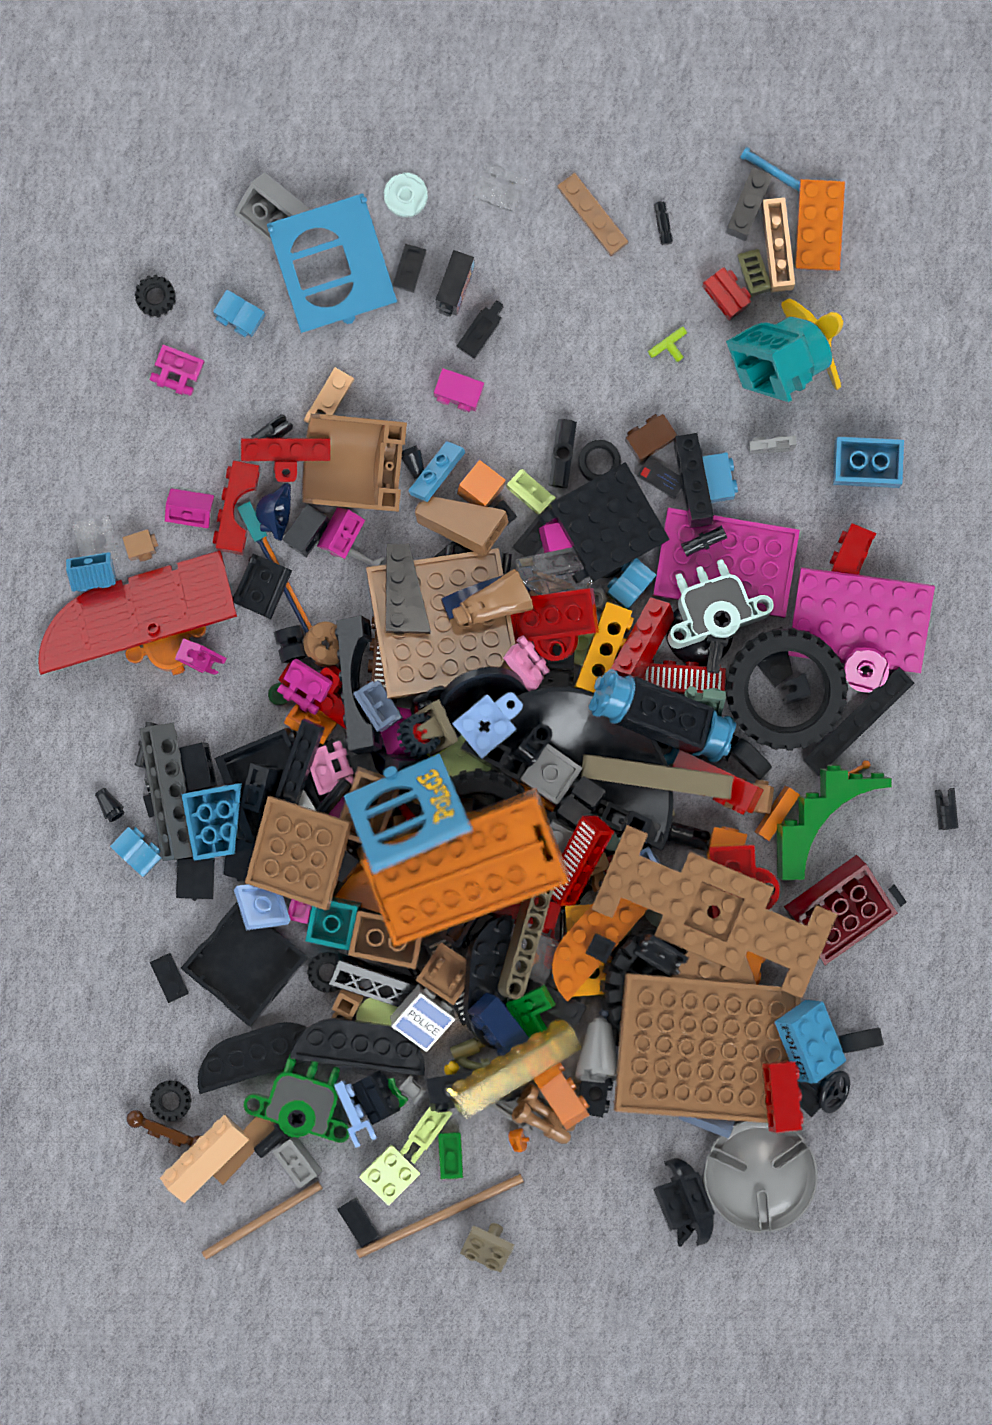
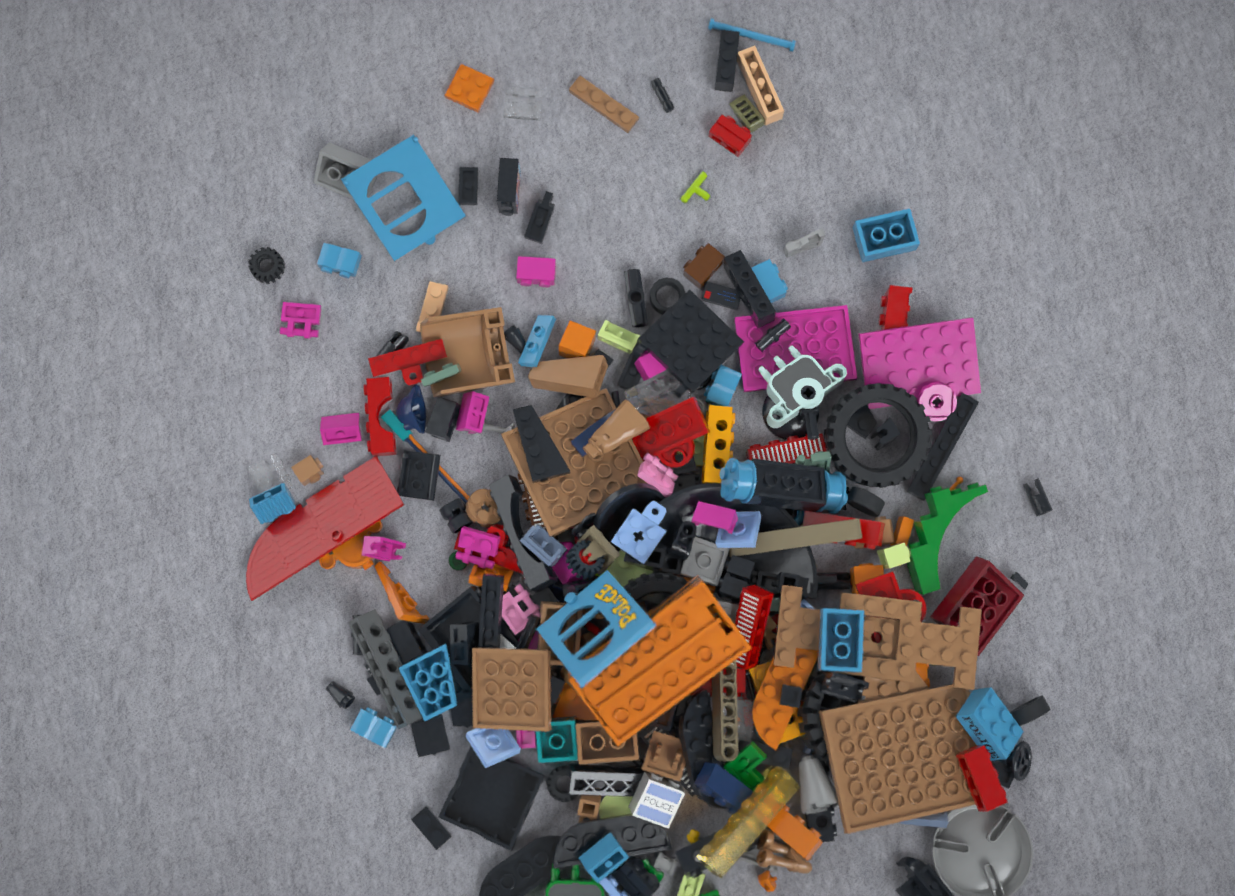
camera: 15 degrees left, 5 degrees down
(203, 717) = (399, 597): none -> orange wing
(324, 479) = (448, 371): none -> sand green plate
(347, 1062) = (603, 857): none -> dark azure brick
(405, 195) = (449, 130): light aqua tile -> none
(443, 151) = (469, 88): none -> orange plate
(465, 1049) = (701, 815): olive plant -> none
(576, 728) = (715, 516): none -> dark pink hinge
(598, 750) = (744, 533): none -> light blue plate
(644, 639) = (748, 427): red brick -> none
(670, 903) = (841, 640): none -> dark azure brick
(763, 827) = (894, 555): none -> yellowish green brick
(786, 354) = (795, 166): teal brick -> none
(820, 225) = (788, 61): orange plate -> none

